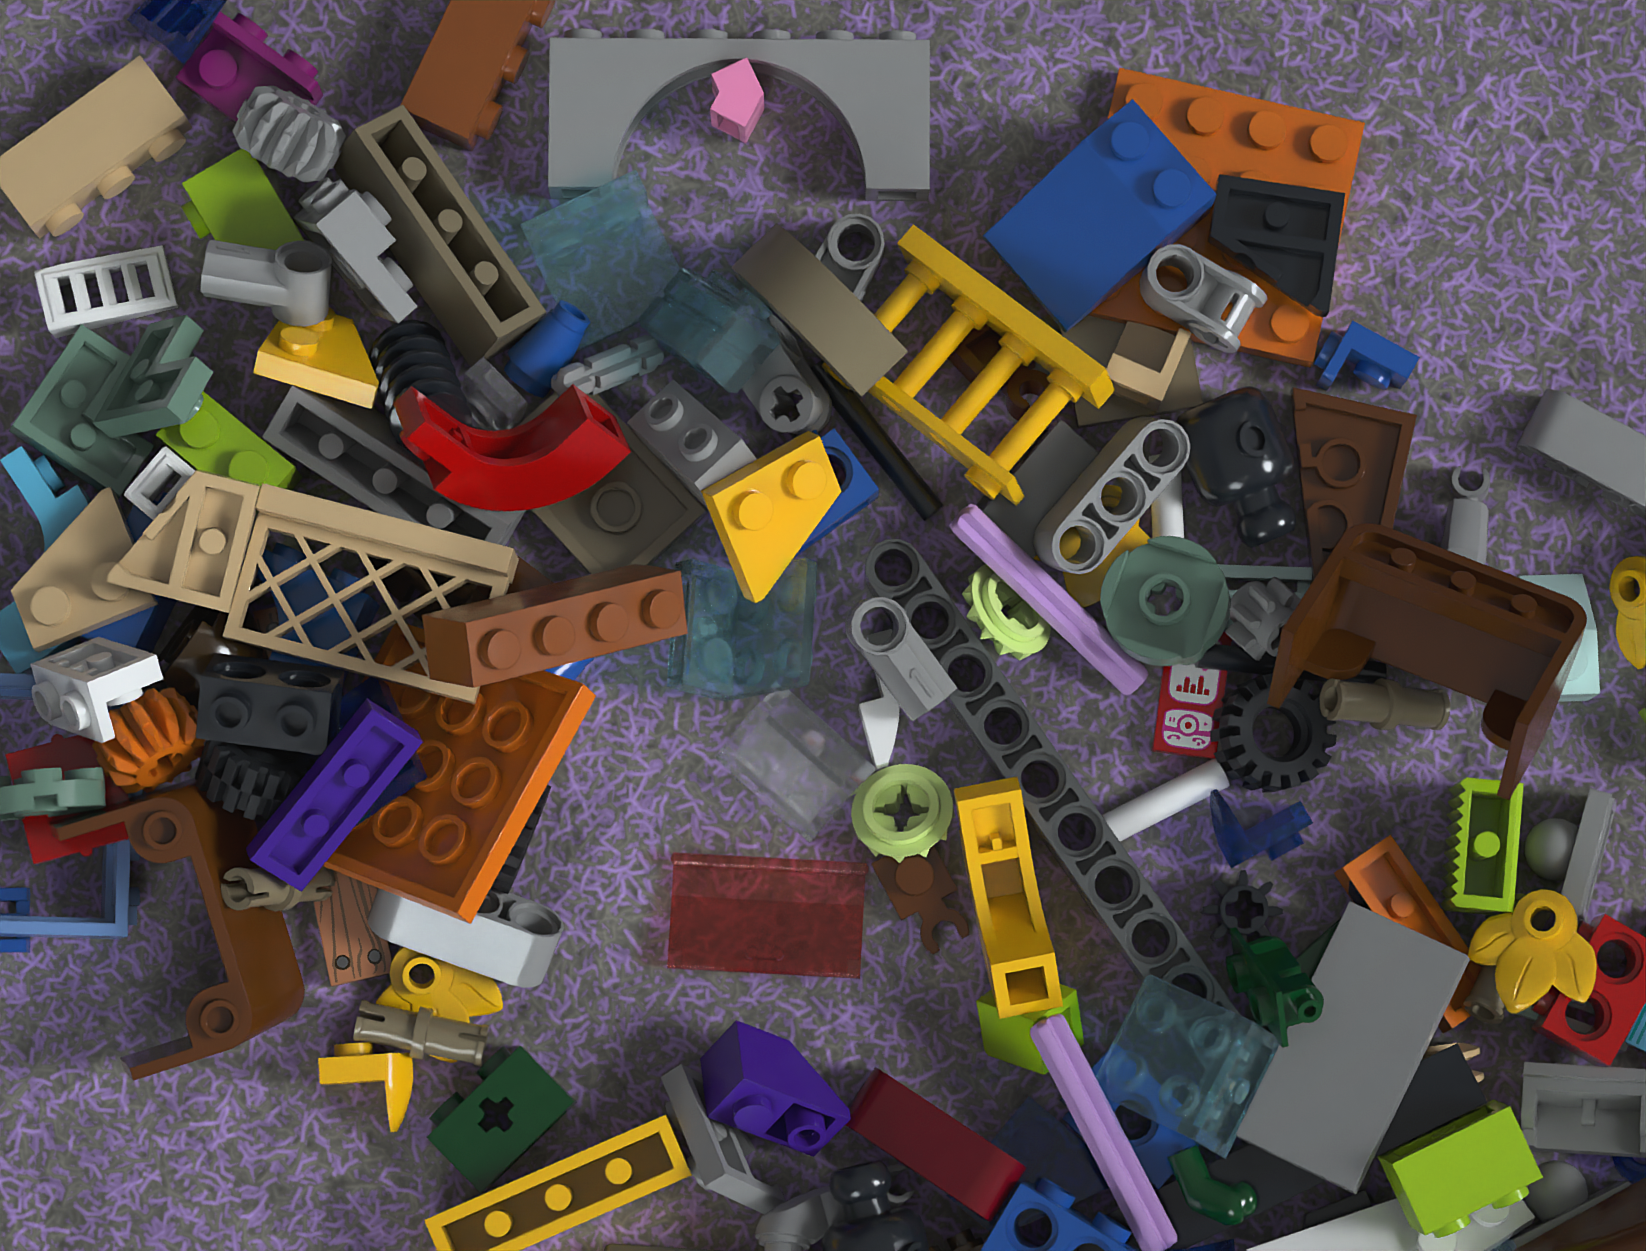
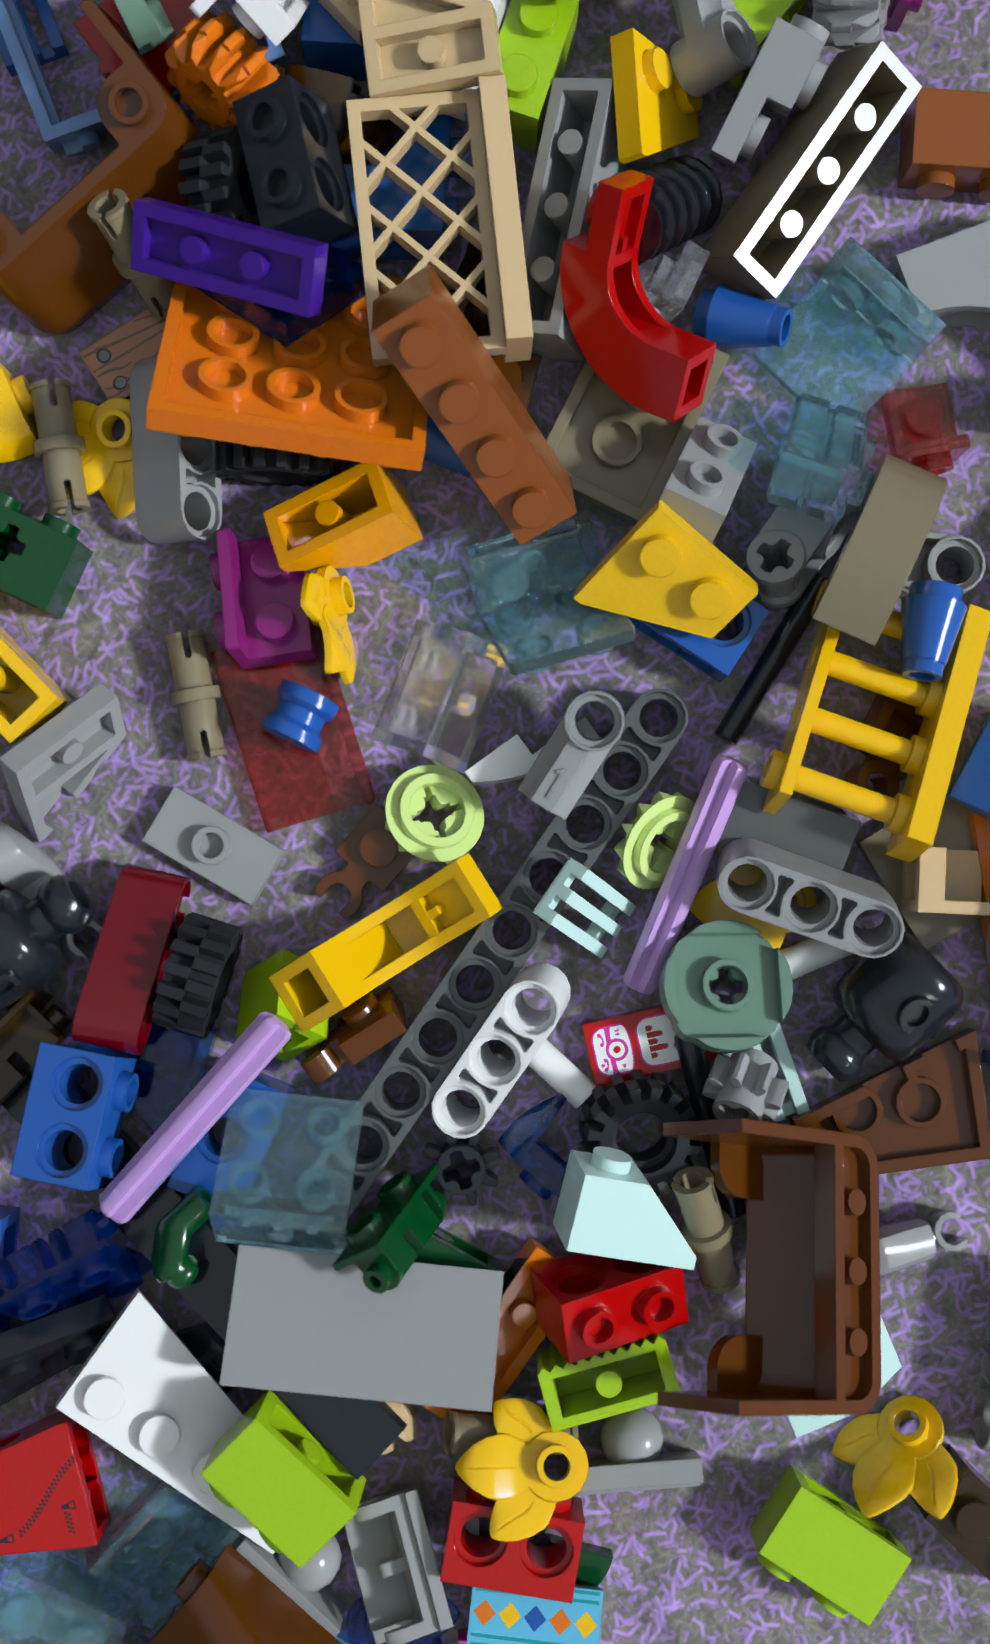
camera: 70 degrees right, 5 degrees up
(598, 793) = (344, 521): none -> light orange slope
(610, 367) = (746, 383): light grey axle -> none
(638, 892) = (260, 604): none -> magenta bracket
(664, 835) = (327, 603): none -> yellow plate
(703, 996) = (195, 694): none -> dark tan pin
(714, 219) = (923, 428): none -> clear red bracket
(764, 901) = (299, 716): none -> blue wheel
(769, 1090) = (126, 787): dark purple slope -> none
(857, 1030) = (213, 845): none -> light grey plate
(907, 290) = (929, 628): none -> blue cone
(972, 1087) = (197, 975): none -> black tyre
(1060, 692) = (601, 919): none -> light aqua tile
(1083, 962) = (360, 1032): none -> reddish brown plate
(1169, 850) = (485, 1074): none -> white beam
(1332, 776) = (614, 1212): none -> light aqua slope
(1409, 816) = (605, 1302): none -> red brick

